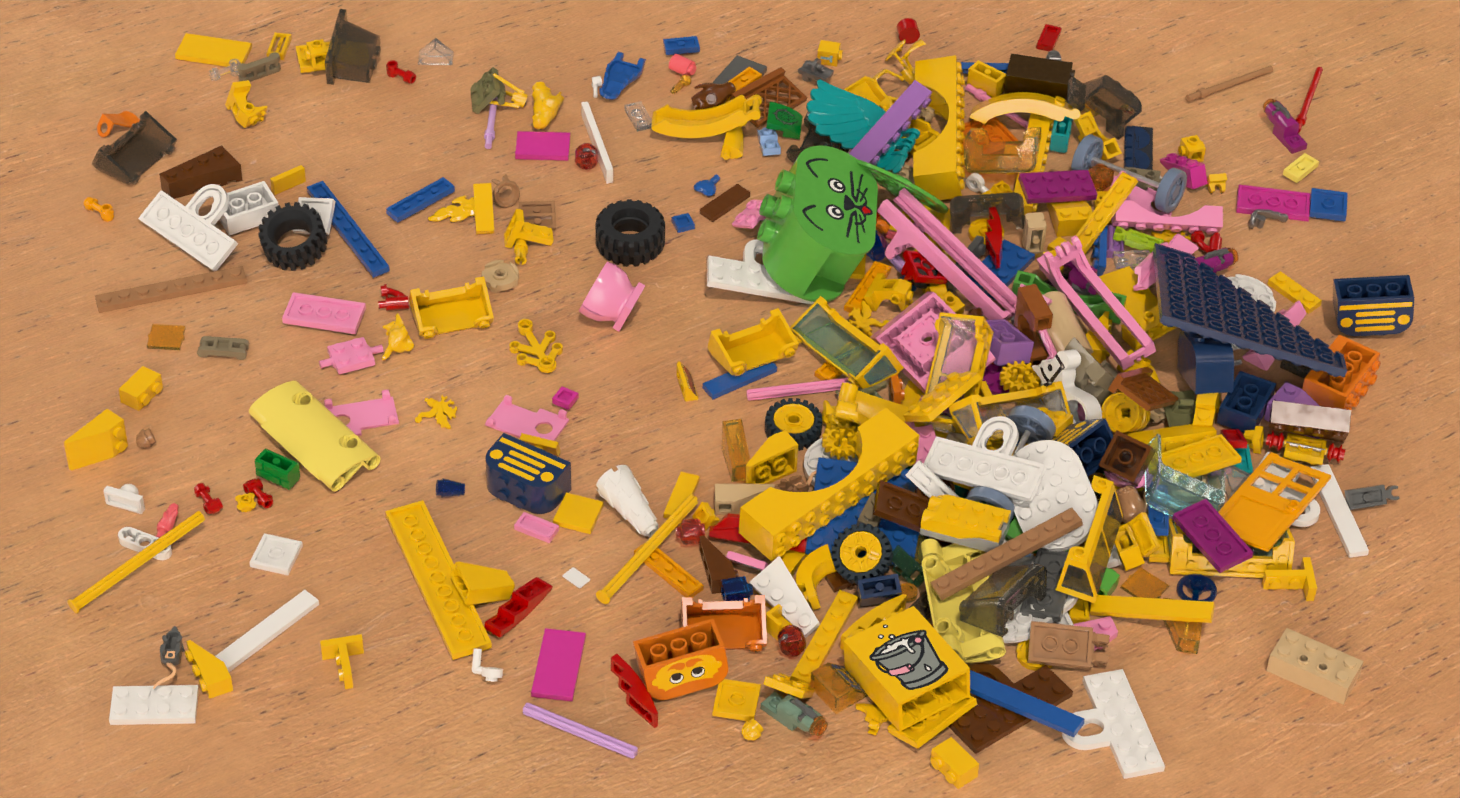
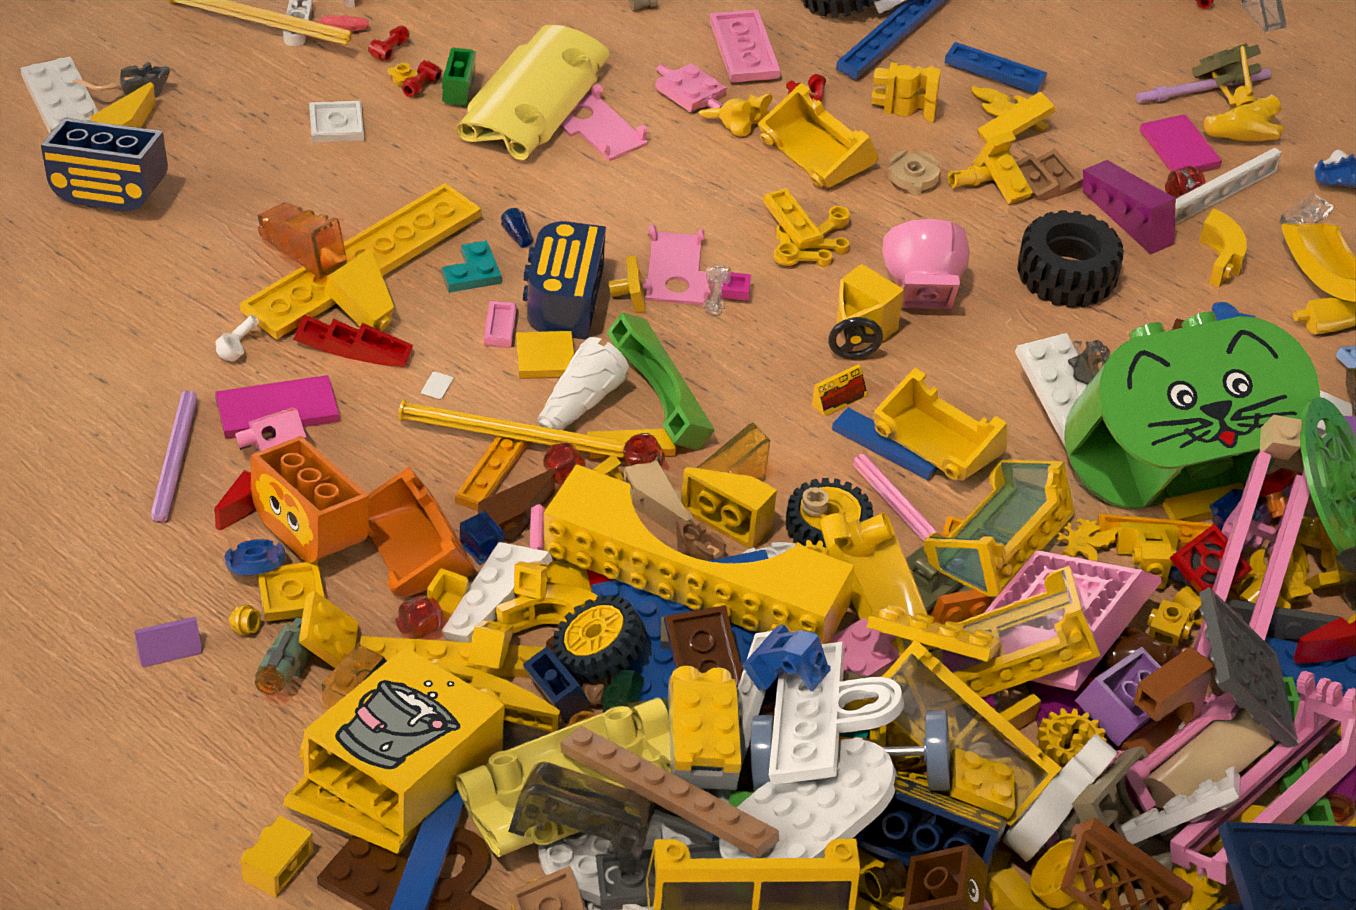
camera: 65 degrees right, 0 degrees up
(268, 630) = (218, 148): white tile -> none
(279, 683) = (104, 163): none -> dark blue brick
(341, 649) = (191, 217): yellow bracket -> none
(412, 597) = (304, 237): none -> clear orange wedge
(429, 243) = (907, 90): none -> yellow hips
(437, 410) = (651, 185): yellow piece -> none
(476, 521) = (477, 271): none -> teal plate
(508, 197) = (1059, 139): medium nougat piece -> none
(517, 348) = (793, 219): none -> yellow tile
(560, 400) = (717, 276): none -> clear bar
(592, 186) = (1133, 204): none -> magenta wedge
(595, 664) = (284, 426): none -> bright pink torso
(628, 340) = (865, 312): none -> yellow piece
(649, 159) = (1229, 243): none -> yellow arch
(671, 460) = (682, 413): none -> bright green arch
(683, 222) = (1141, 311): blue tile -> none
(701, 709) = (255, 557): none -> blue tile
(704, 488) = (643, 449): none -> clear red head
(739, 258) = (1086, 364): none -> clear smoke piece
(754, 777) = (168, 642): none -> medium lavender slope
(789, 416) = (815, 495): none -> tan bush
(800, 569) = (530, 579): none -> yellow tile
(838, 608) = (490, 645): none -> yellow slope
(881, 187) = (1281, 437): none -> tan brick
(940, 471) = (788, 651): none -> blue tile
(1027, 277) = (1247, 668): none -> dark grey plate
(1101, 336) = (1183, 808): none -> white wing

